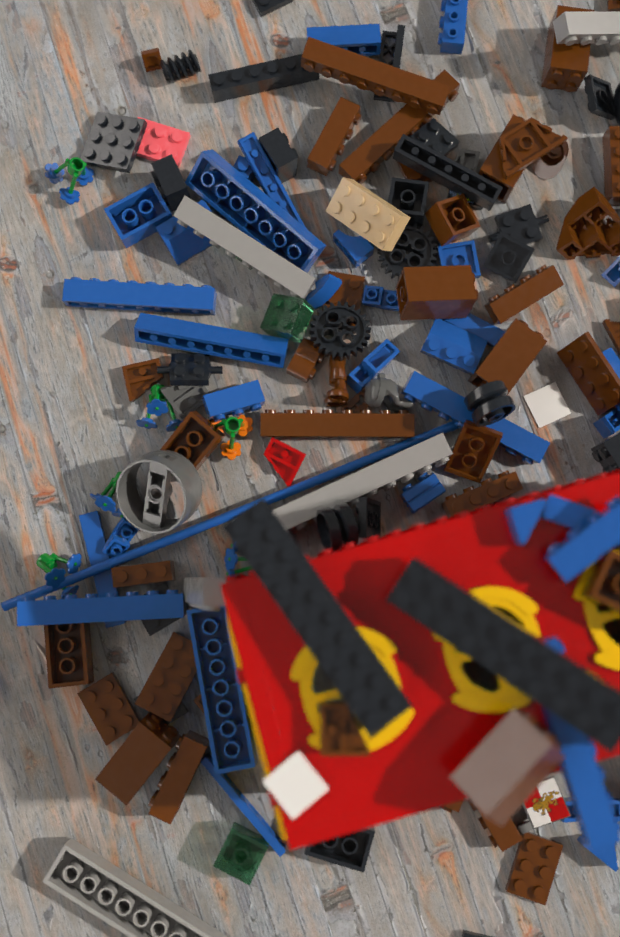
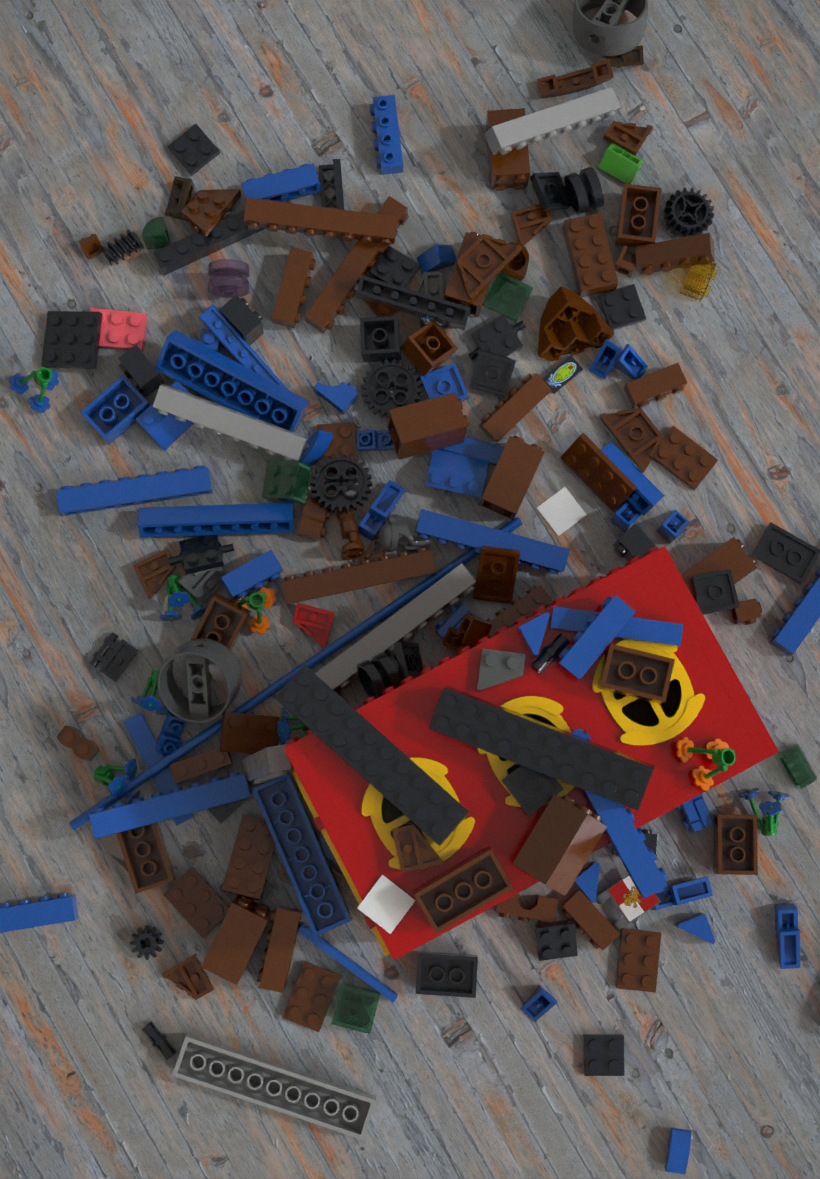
camera: 15 degrees left, 0 degrees up
(27, 522) = (74, 739): none -> reddish brown brick
(40, 839) = (159, 1040): none -> black pin
(43, 735) = (149, 949): none -> black gear
(83, 783) = (190, 977): none -> reddish brown wing
(87, 454) = (118, 660): none -> black plate
(196, 554) = (247, 732): none -> reddish brown plate
(200, 829) = (311, 996): none -> reddish brown plate
(214, 57) = (156, 234): none -> clear green brick
(245, 33) = (179, 197): none -> dark brown hinge
(270, 46) = (209, 207): none -> reddish brown wing
(273, 112) = (228, 278): none -> clear purple wheel
(367, 214) = (343, 362): tan brick -> none
(385, 792) = (462, 890): none -> reddish brown brick
(426, 889) = (538, 1003): none -> blue slope
(436, 505) = (470, 631): none -> reddish brown brick
(456, 829) = (556, 939): none -> black plate
(476, 138) = (436, 258): none -> blue slope
(476, 548) = (499, 667): none -> dark grey wing
(485, 692) = (531, 788): none -> black plate
(489, 403) = (500, 526): black wheel -> none
(536, 545) = (550, 653): none -> black pin
(537, 188) = (507, 296): none -> clear green plate
(574, 122) = (530, 222): none -> reddish brown wing
(576, 273) = (562, 374): none -> tile

